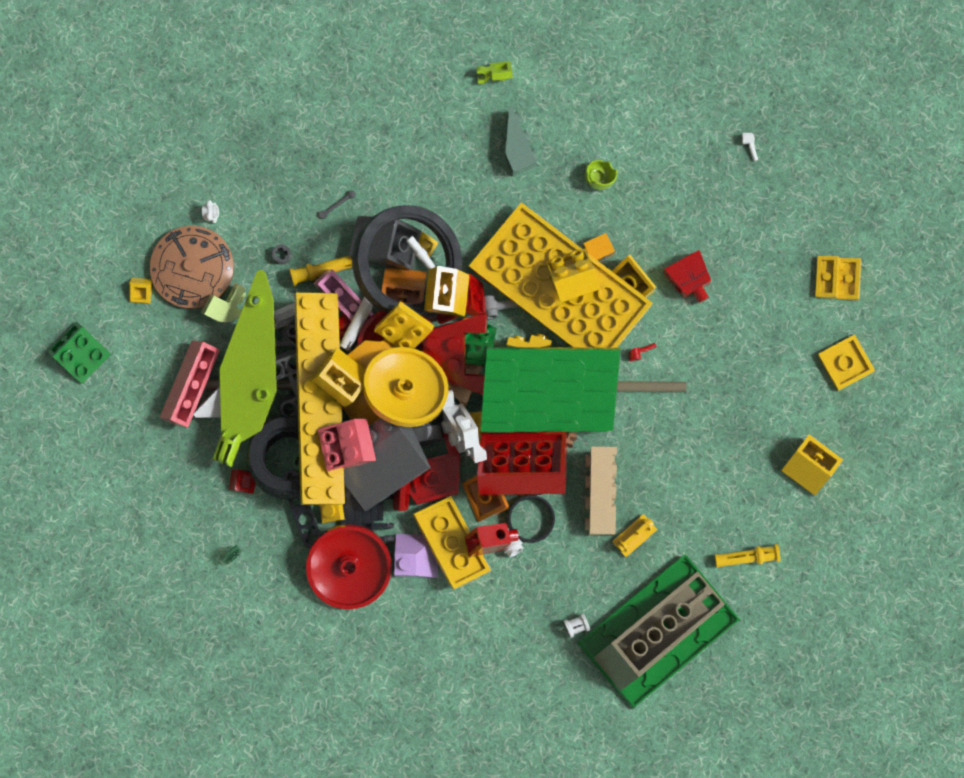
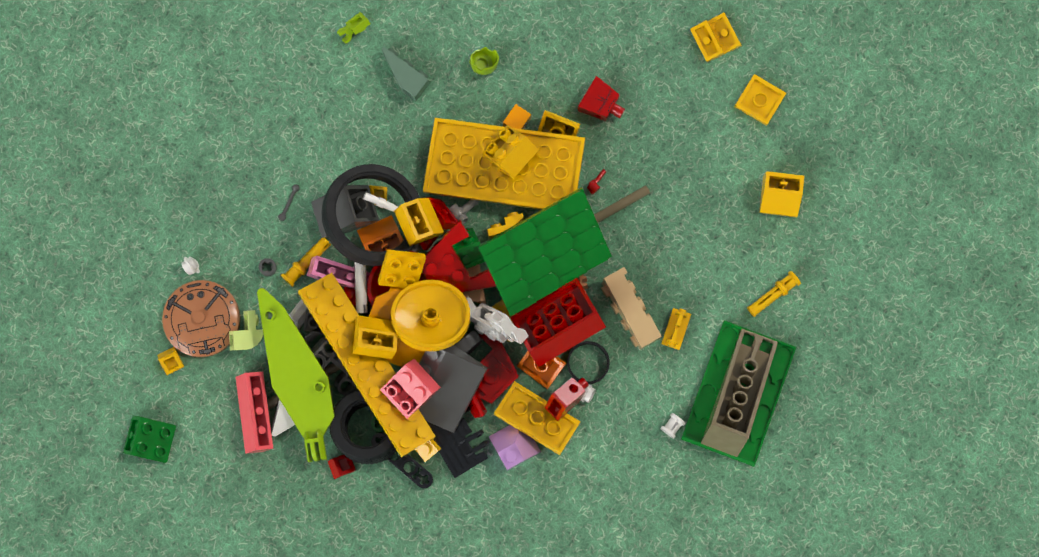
camera: 30 degrees left, 0 degrees up
(231, 555) = (367, 529): clear green tile -> none
(348, 566) = (466, 484): red dish -> none

